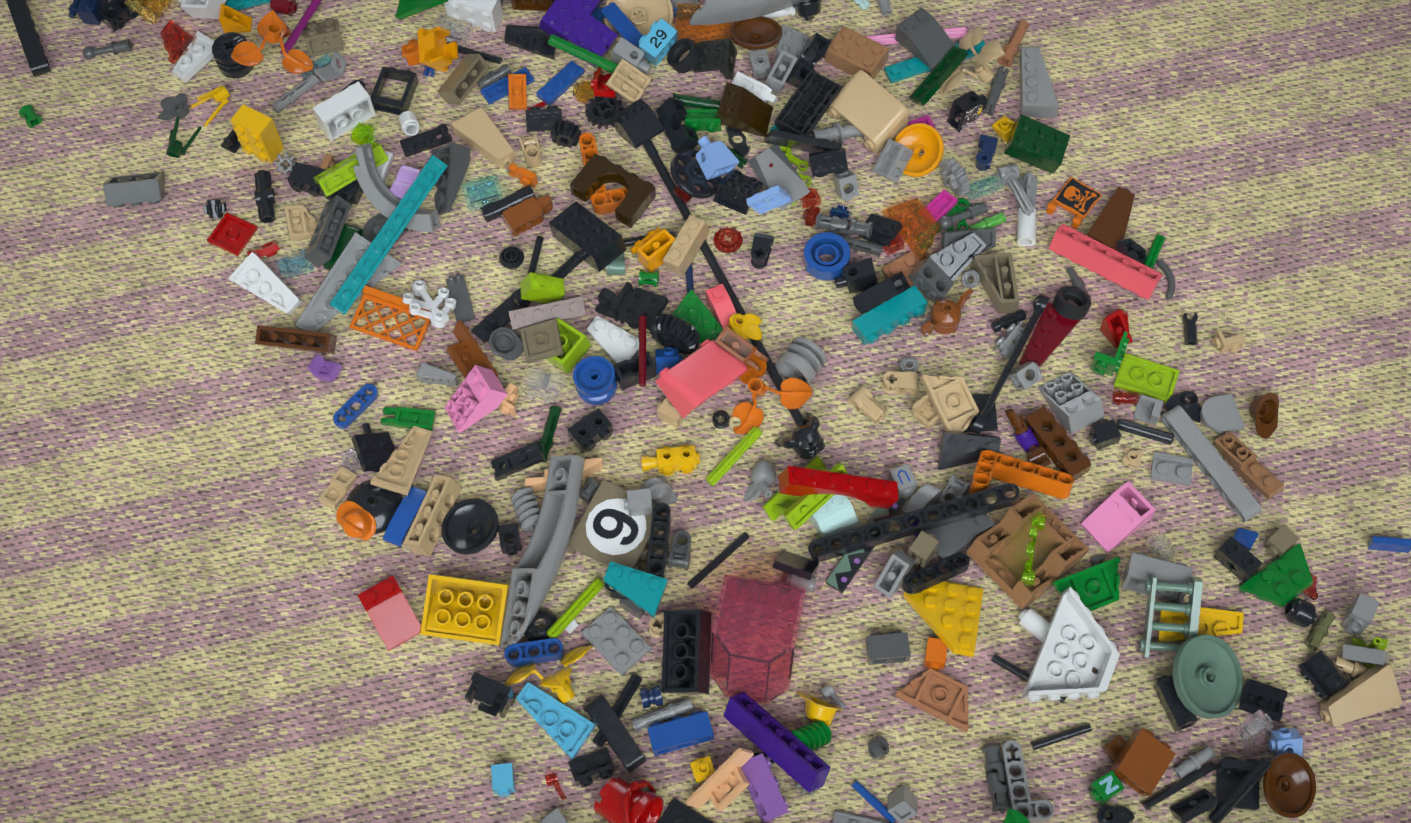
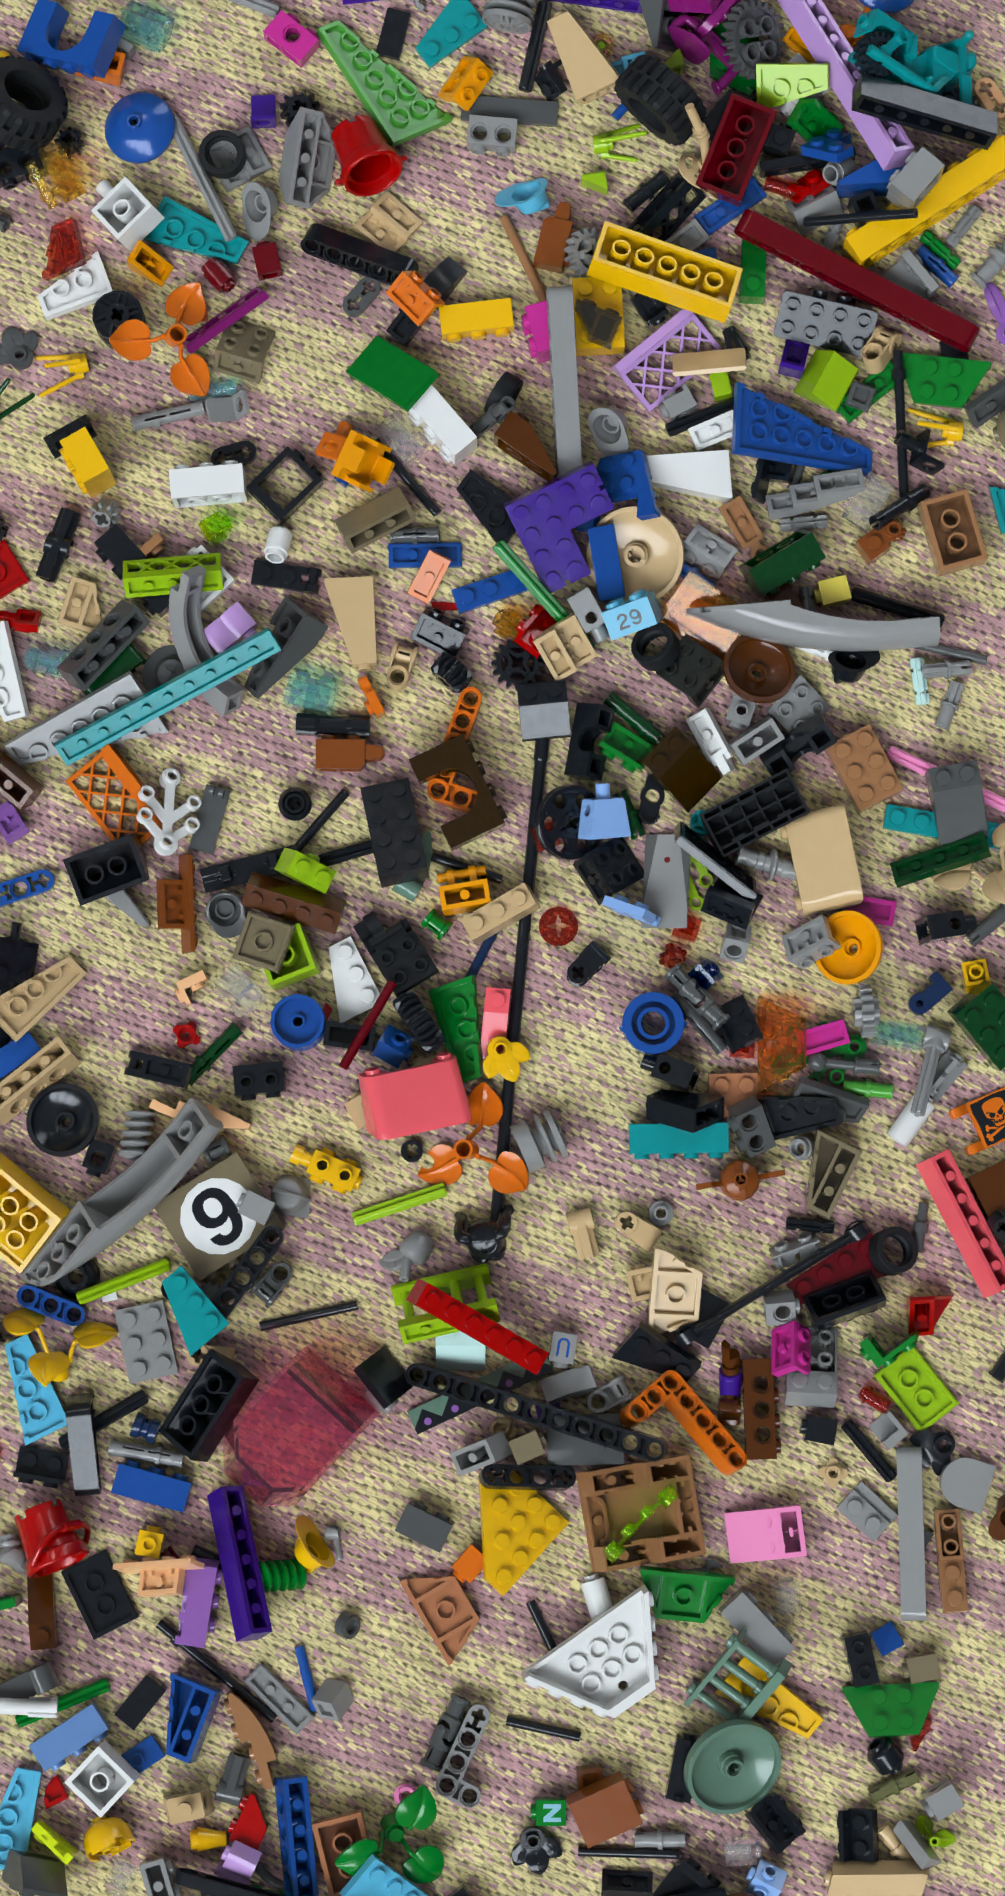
camera: 30 degrees right, 20 degrees up
(407, 355) = (107, 868): none -> black slope
(409, 418) = (72, 942): green hinge -> none
(475, 398) = (153, 966): bright pink slope -> none
(523, 427) = (190, 1028): none -> red plate
(739, 347) = (478, 1086): dark orange hinge -> none
(1050, 392) = (790, 1349): none -> dark pink bracket
(1064, 347) = (844, 1301): none -> black slope

